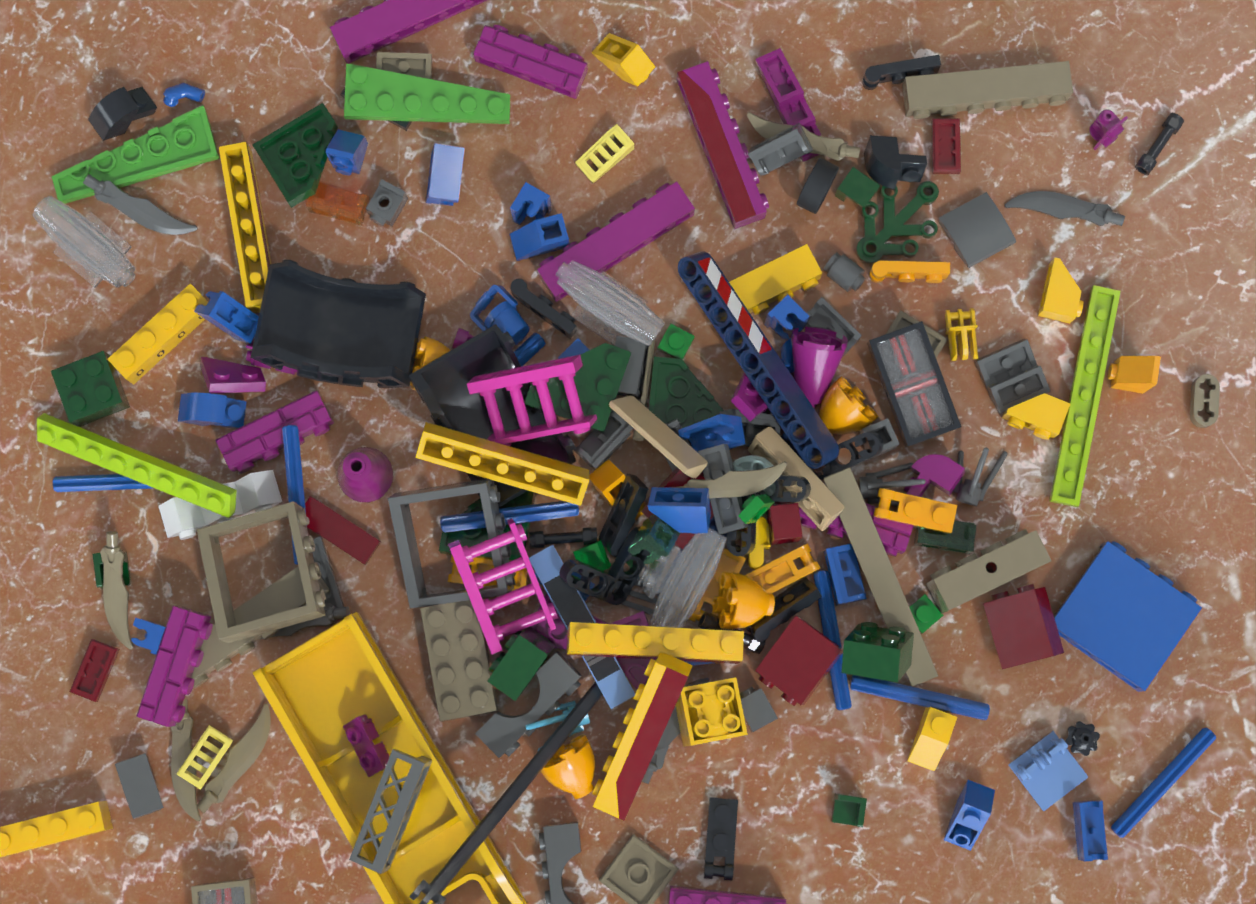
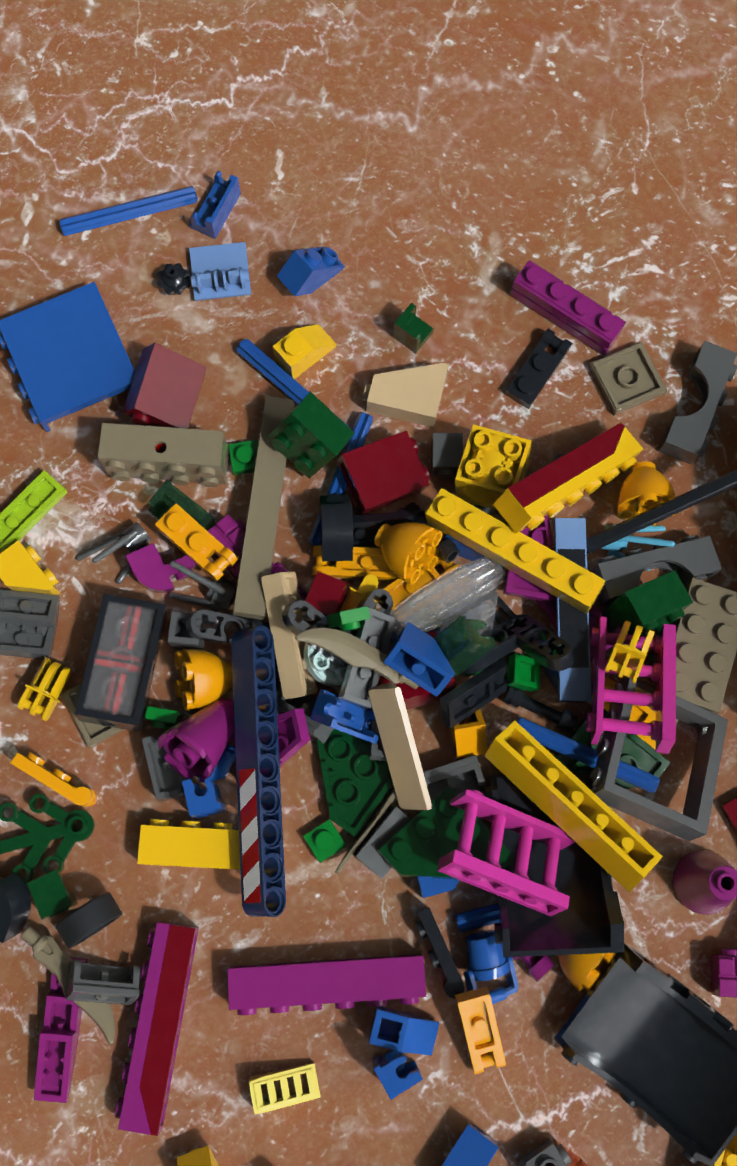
camera: 155 degrees left, 5 degrees down
(484, 268) = (480, 1029): none -> light orange plate
(518, 603) = (628, 654): none -> yellow arm
(608, 305) = (373, 915): clear plate -> none
(811, 589) = (336, 527): none -> black brick
(818, 747) = (408, 393): none -> tan slope
(844, 272) = (117, 815): dark grey brick -> none
(844, 574) = (295, 528): blue hinge -> none
(855, 363) = (162, 718): none -> green plate

